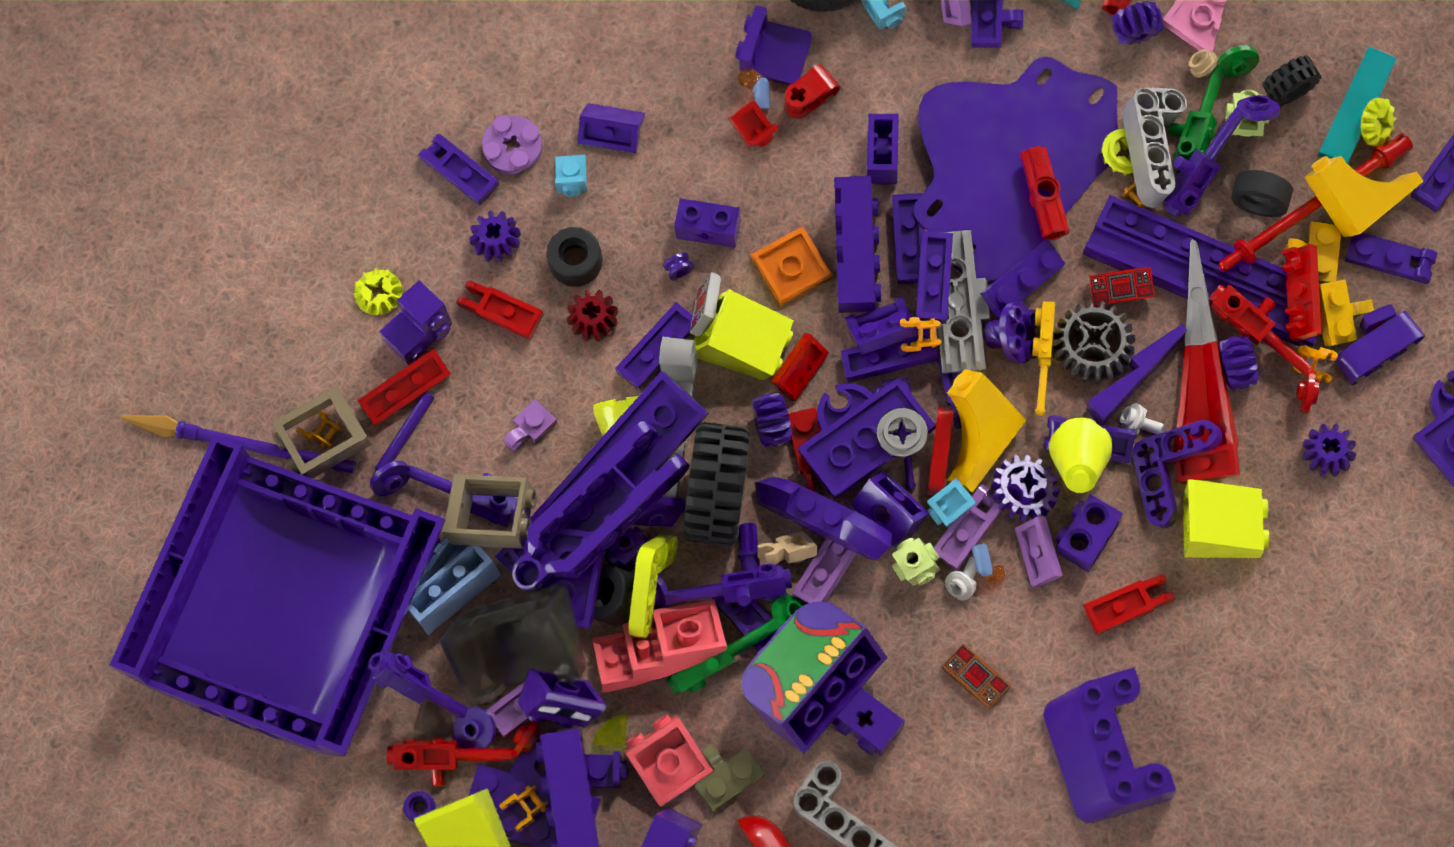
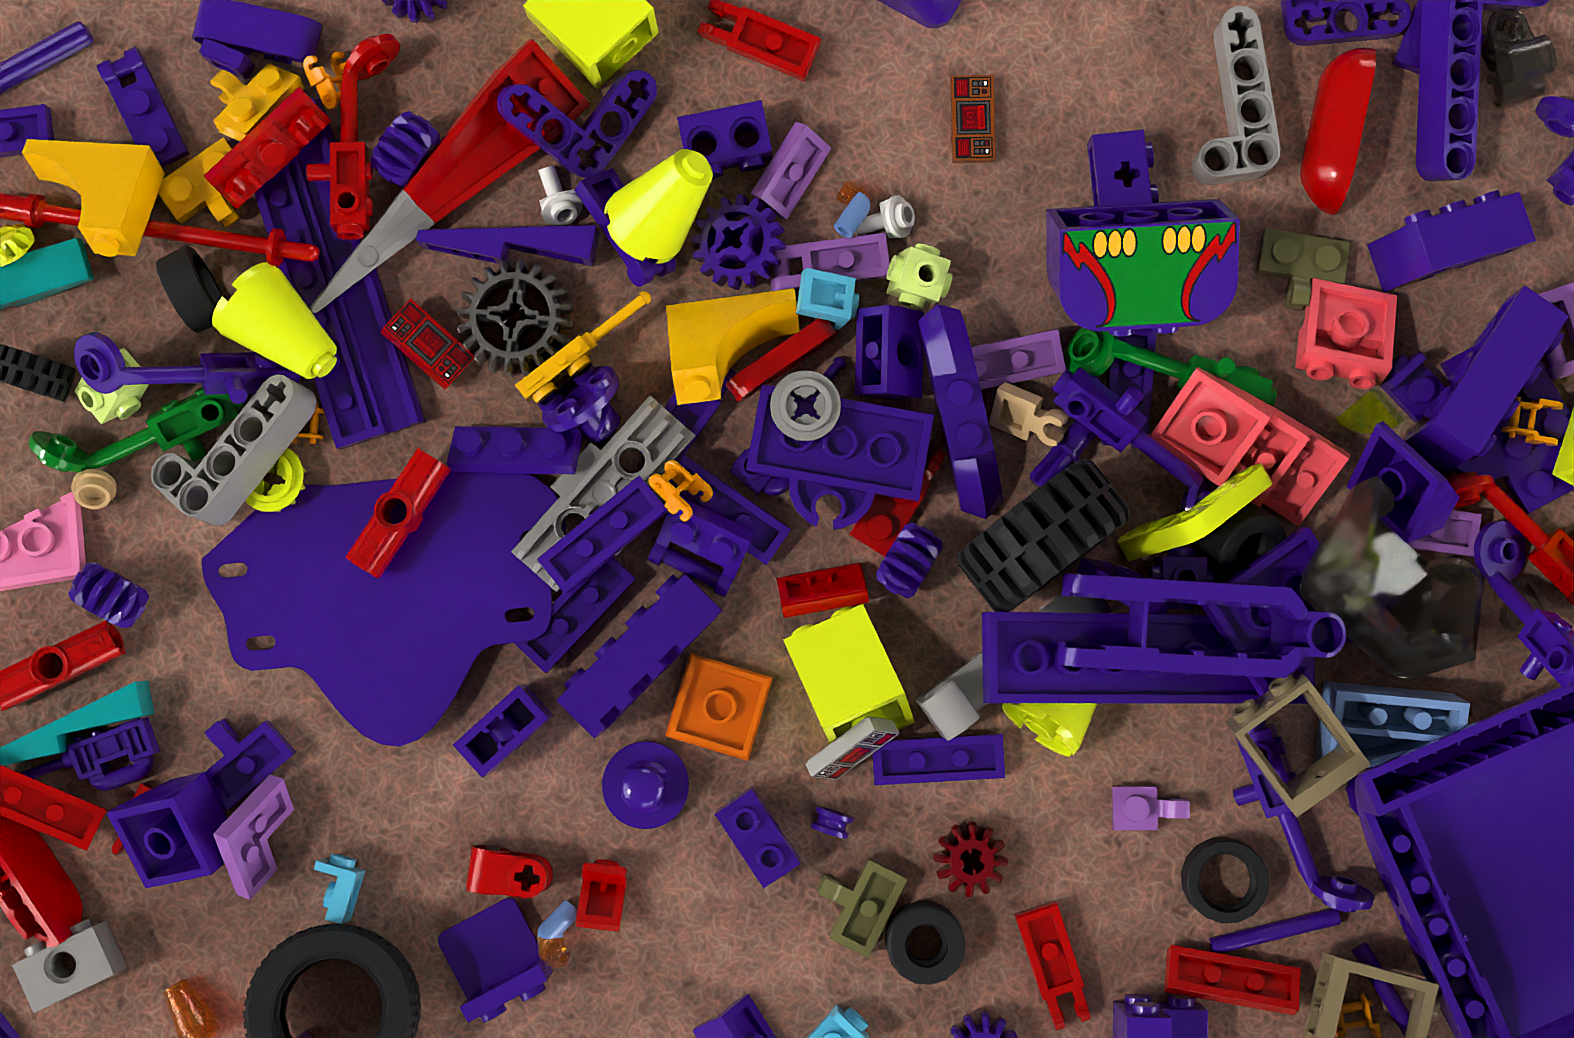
camera: 140 degrees left, 15 degrees up
(451, 407) = (1257, 871): none -> black tyre
(622, 245) = (864, 905): none -> olive plate
(788, 195) = (645, 785): none -> dark purple plate
(1200, 214) = (275, 322): none -> neon yellow cone

